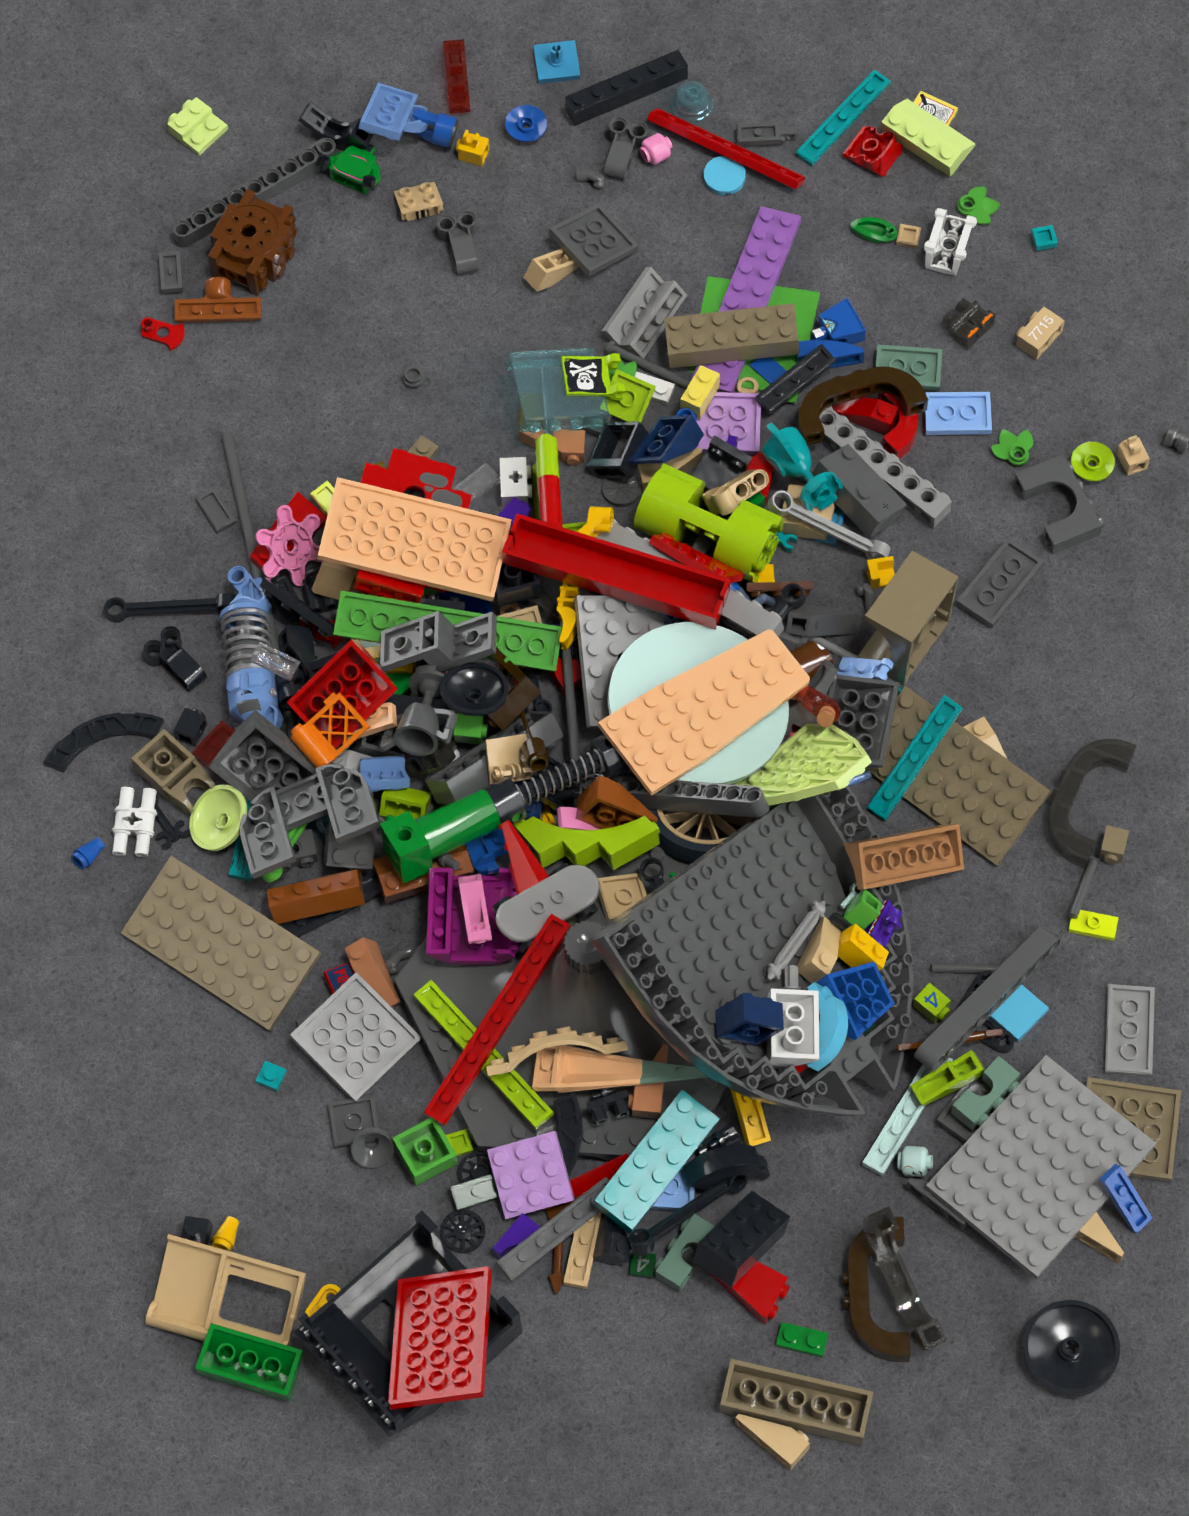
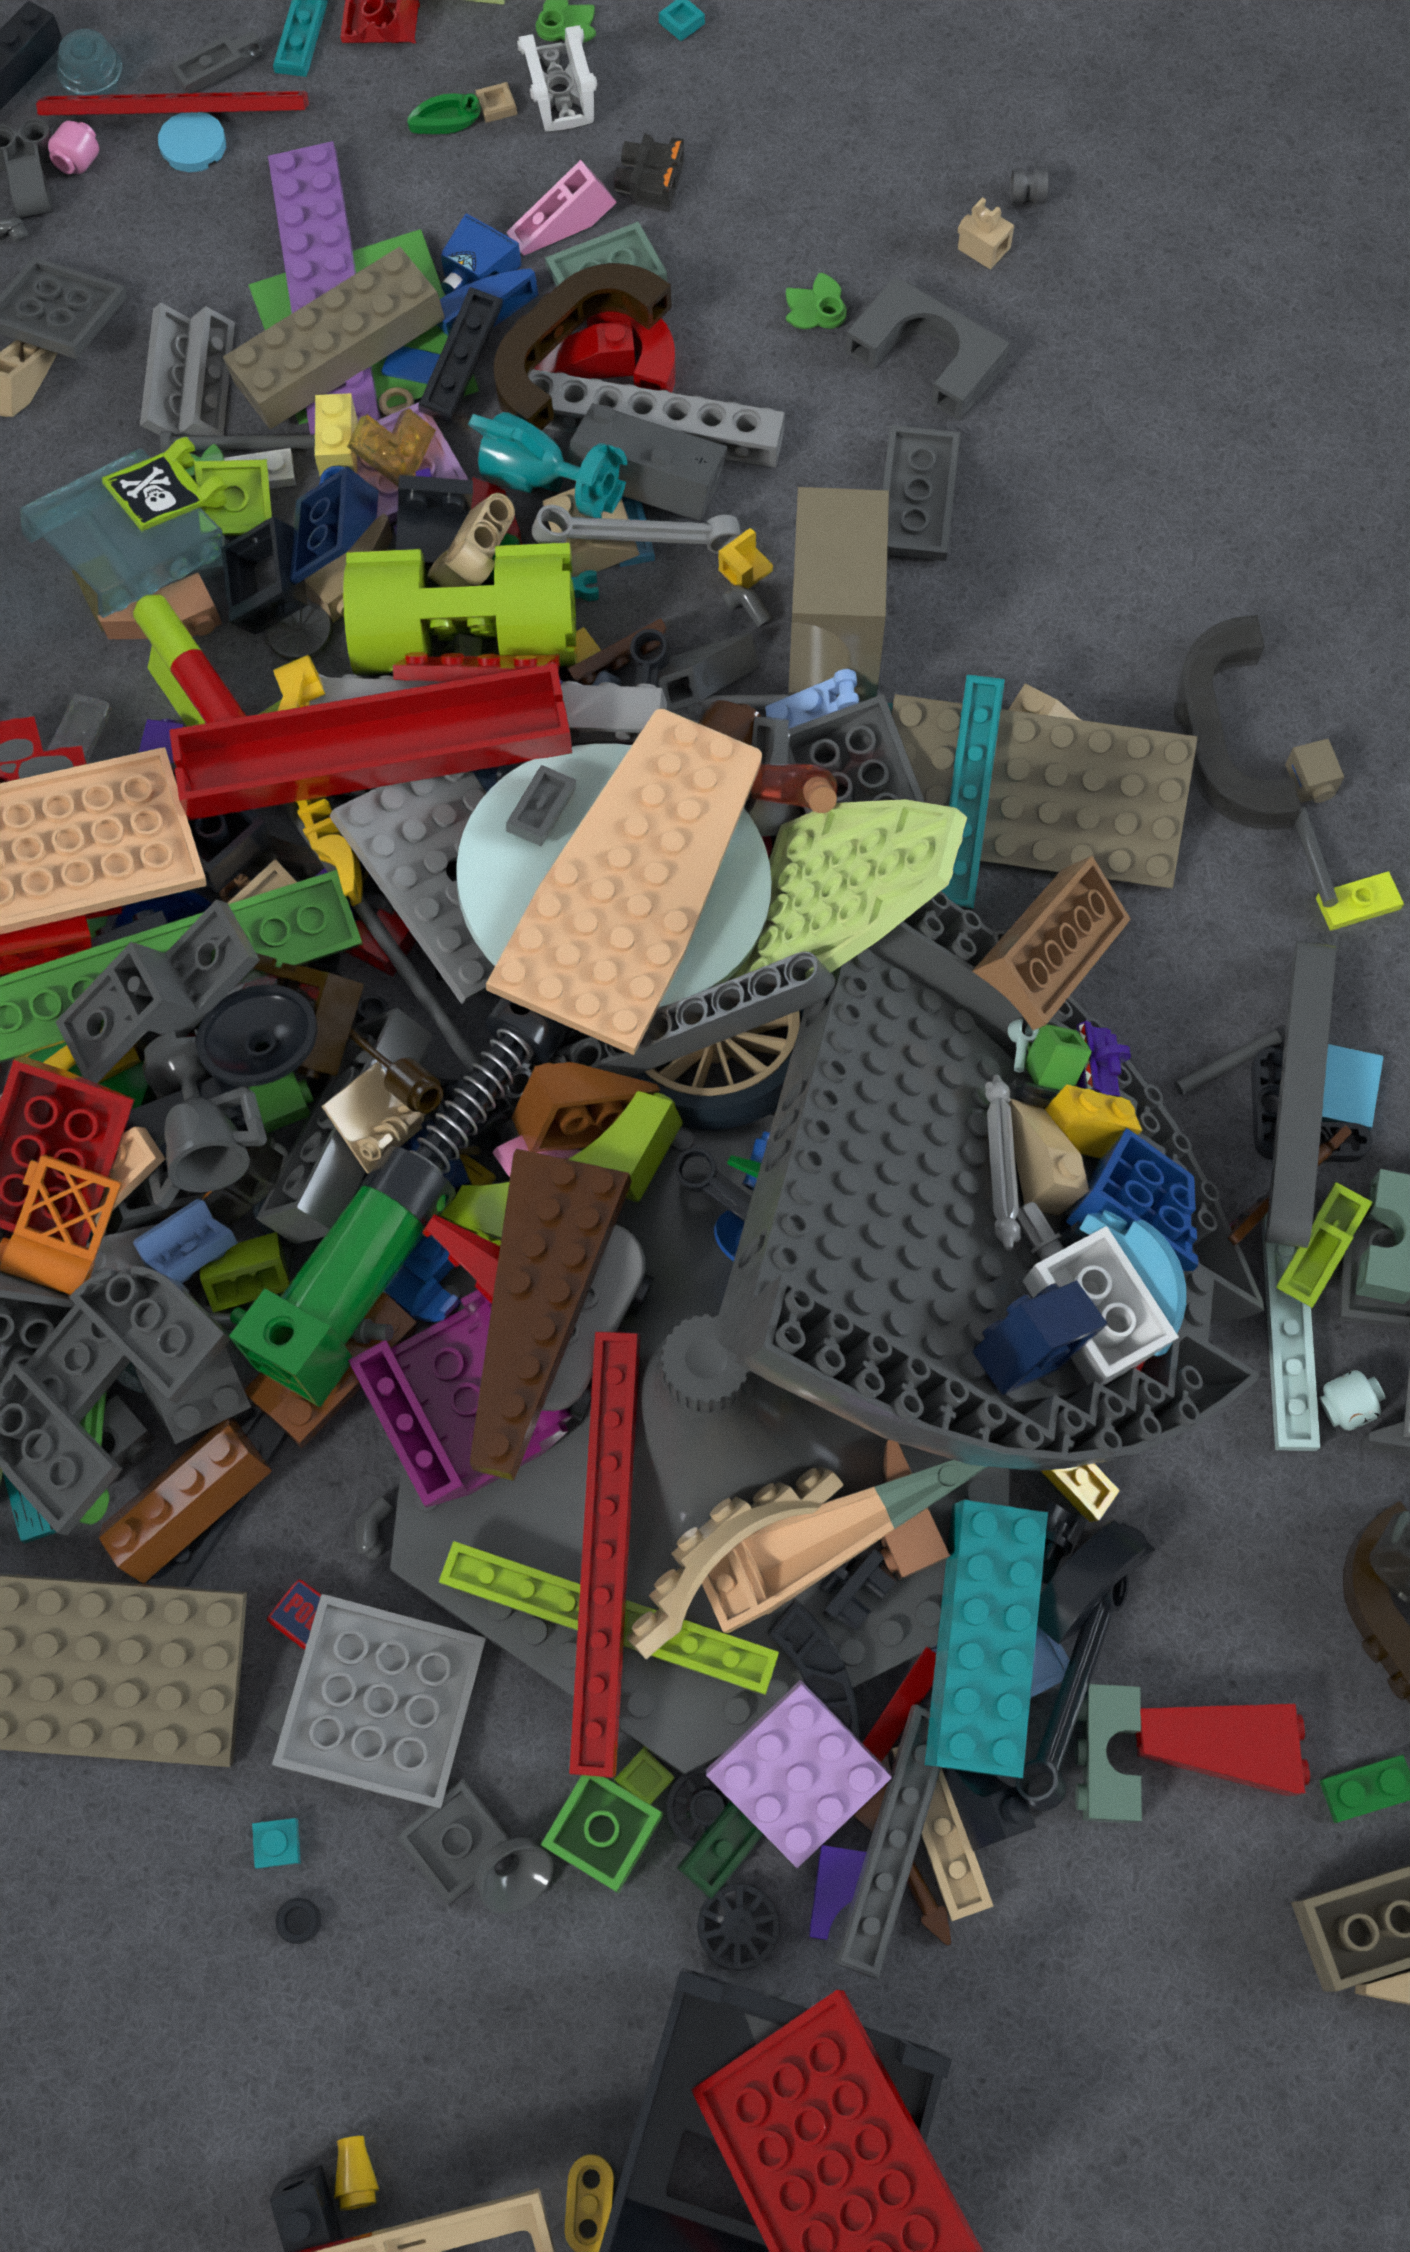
camera: 30 degrees left, 5 degrees up
(262, 1115) = (298, 1920): none -> black tile
(370, 965) = (340, 1570): nougat slope -> none
(474, 909) = (447, 1374): bright pink arch -> none
(514, 470) = (132, 696): white brick -> none
(551, 867) = (548, 1256): none -> reddish brown wing
(620, 893) = (676, 1236): tan plate -> none
(643, 1266) = (1056, 1820): dark green tile -> none
(681, 648) = (541, 805): none -> dark grey plate
(727, 418) = (396, 451): none -> clear yellow plate
(741, 1238) = (1193, 1688): black brick -> none
(908, 321) = (564, 210): none -> bright pink slope
(932, 1004) = (1220, 1142): lime brick -> none
(958, 413) = (716, 296): light blue plate -> none
(1039, 332) = (755, 139): tan brick -> none
(1092, 453) = (938, 259): lime dish -> none

